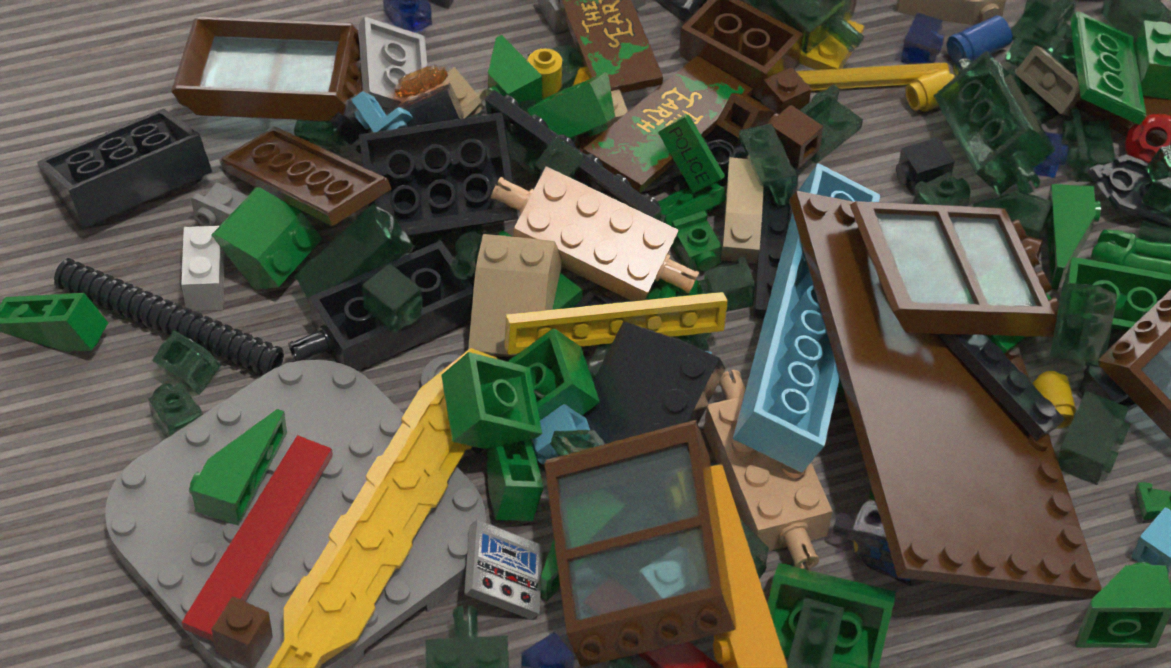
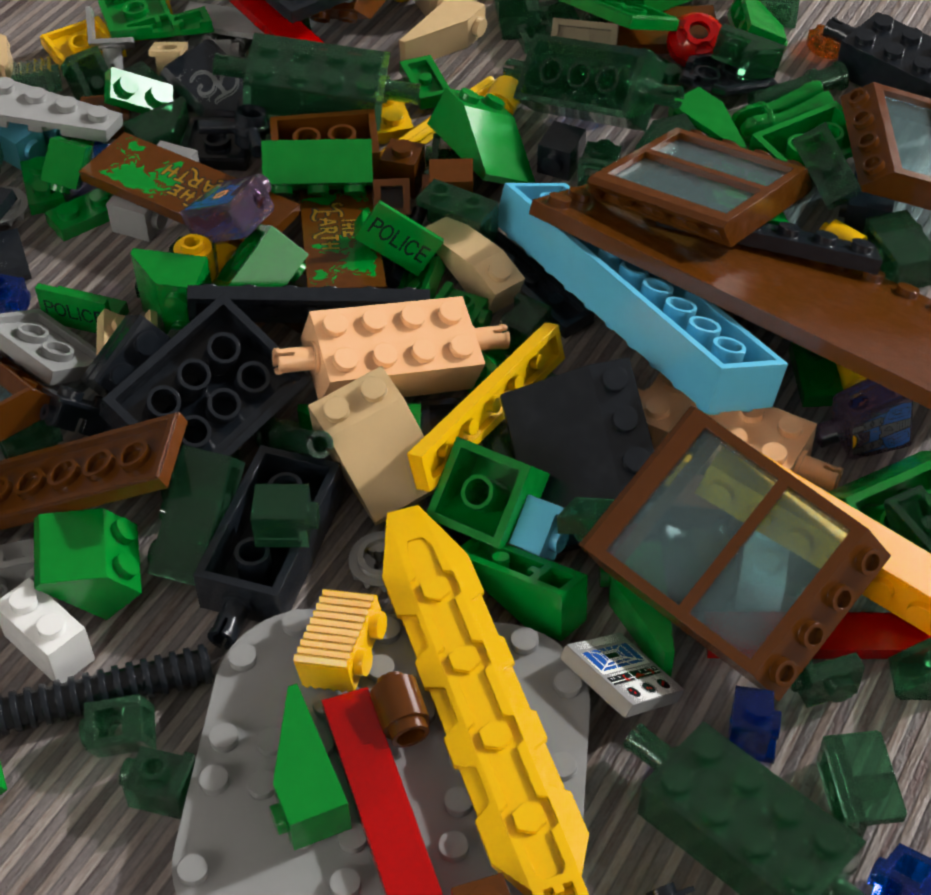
camera: 40 degrees left, 5 degrees down
(334, 477) = (400, 708): none -> reddish brown brick
(346, 406) = (340, 640): none -> yellow brick
(372, 115) = (88, 381): medium azure bracket -> none
(420, 81) = (91, 333): clear orange gear -> none
(451, 51) = (76, 307): none -> green panel
(490, 402) = (470, 537): green slope -> none
(560, 158) = (298, 304): clear green bracket -> none
(596, 49) = (245, 208): none -> clear purple torso
(703, 55) = (318, 166): none -> green brick
(866, 116) = (482, 131): none -> green slope
(889, 35) = (426, 72): none -> green plate
(923, 40) = (457, 68): clear blue brick -> none
(974, 41) = (494, 48): blue piece -> none

